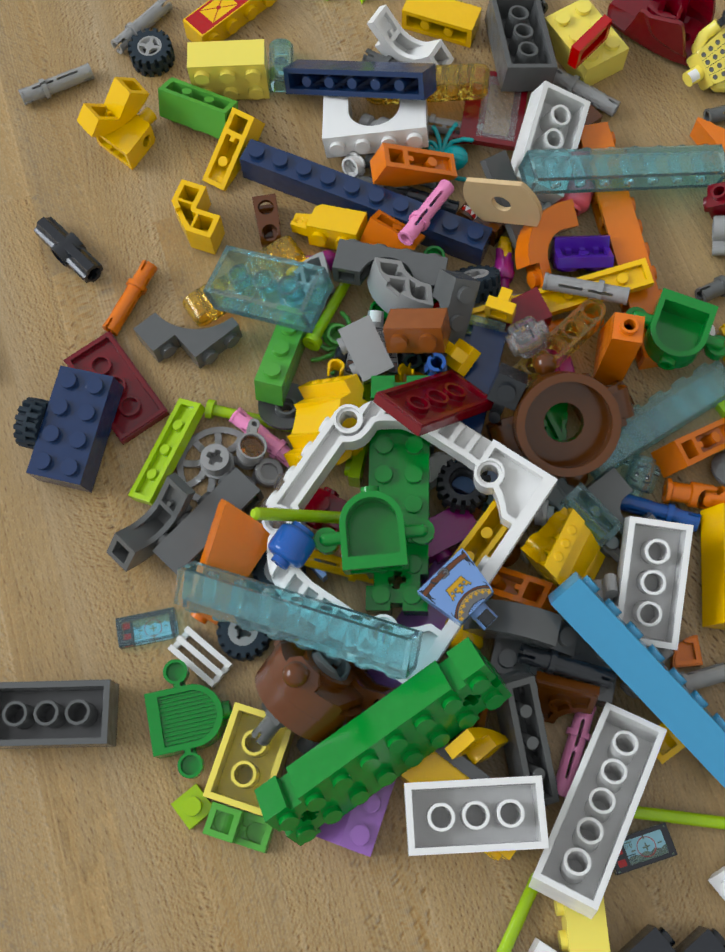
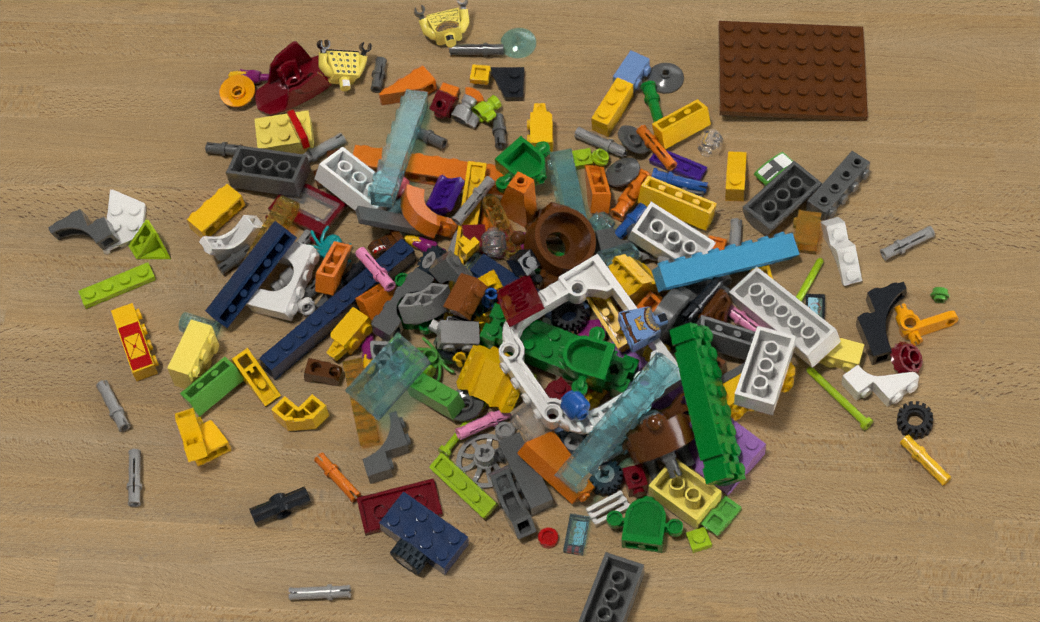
camera: 65 degrees left, 10 degrees down
(130, 591) = (548, 538): none -> red tile
(151, 52) = (141, 398): black wheel -> none
(243, 678) = (635, 480): none -> dark red brick
(251, 446) = (488, 427): light grey piece -> none
(298, 515) = (564, 381): lime bar -> none
(477, 744) = (727, 360): yellow slope -> none
(524, 203) = (384, 232): tan piece -> none
(668, 206) = (430, 138): none -> dark grey pin

